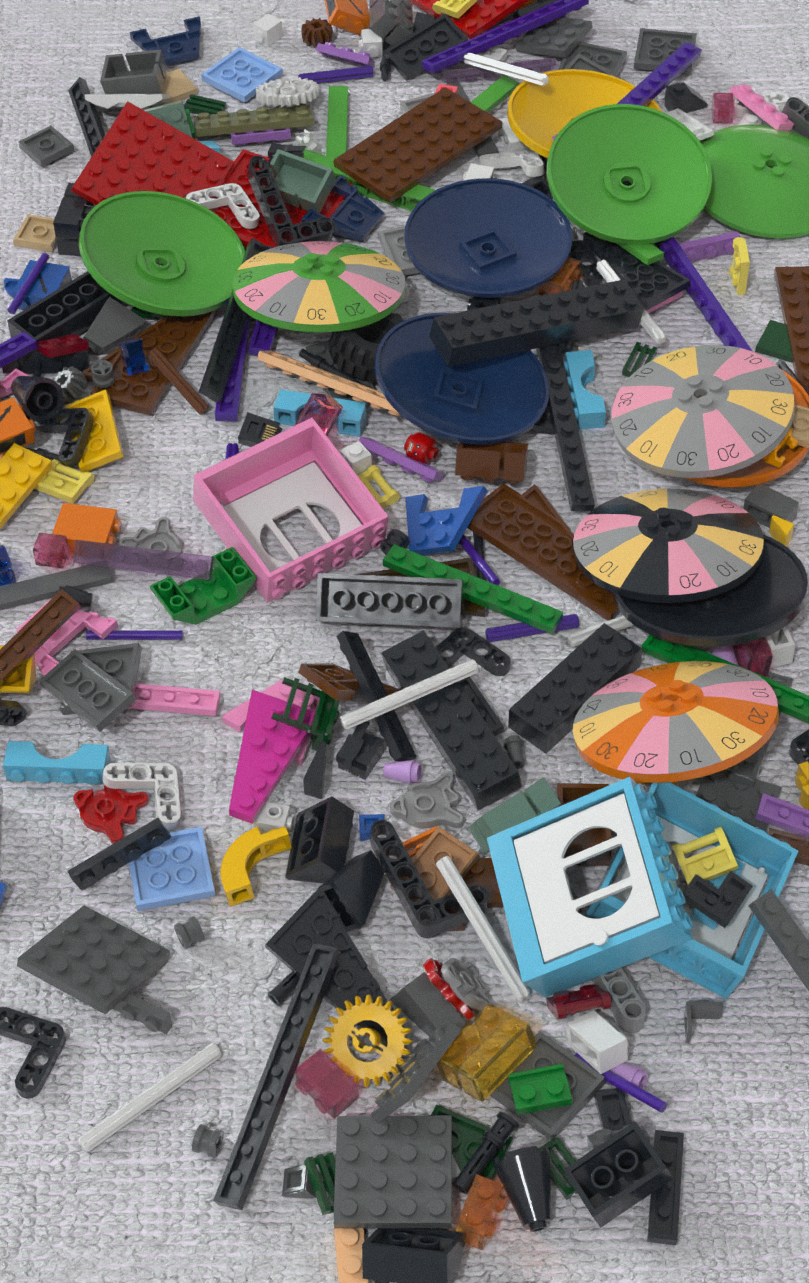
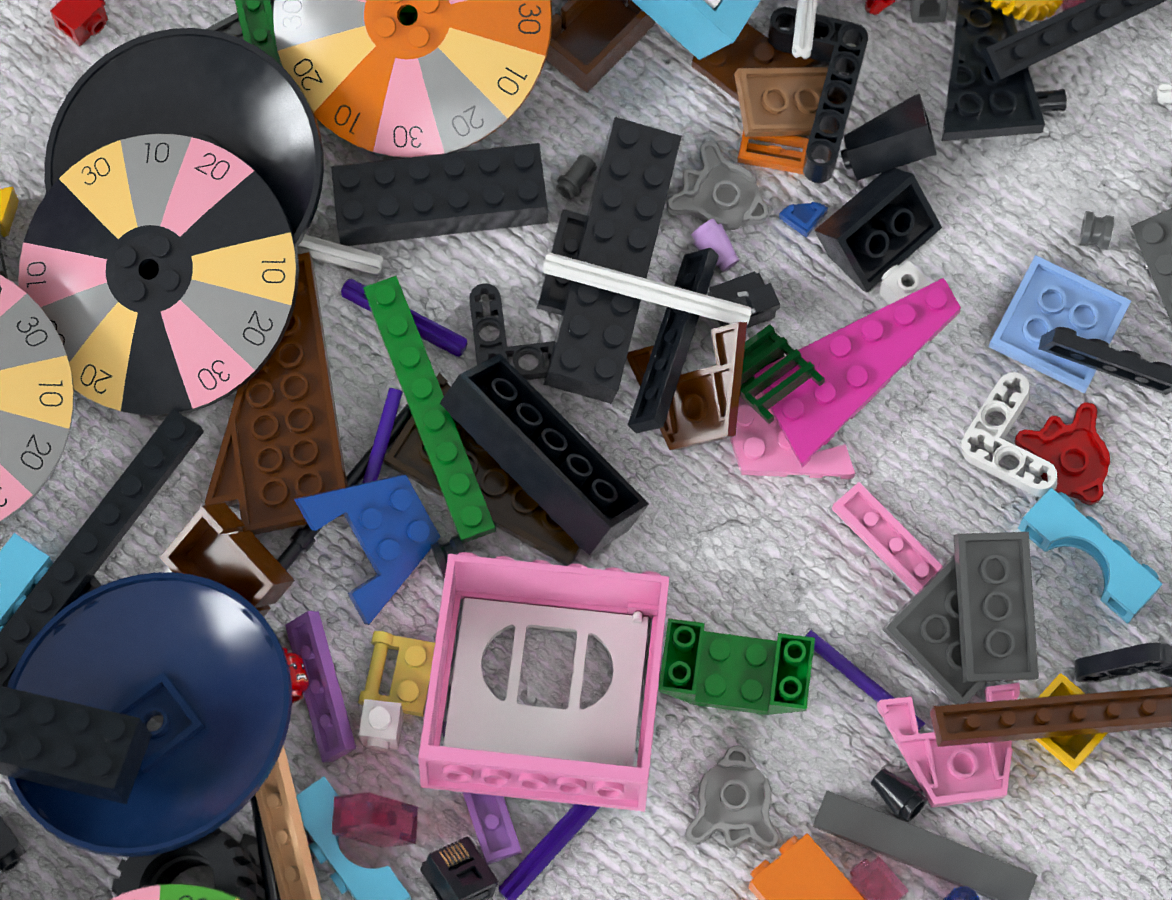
camera: 140 degrees left, 20 degrees up
(143, 559) = (779, 766): clear purple plate -> none
(244, 855) = (978, 271): yellow arch -> none
(315, 774) = (815, 310): black slope -> none
(523, 806) = (661, 82): sand green piece -> none

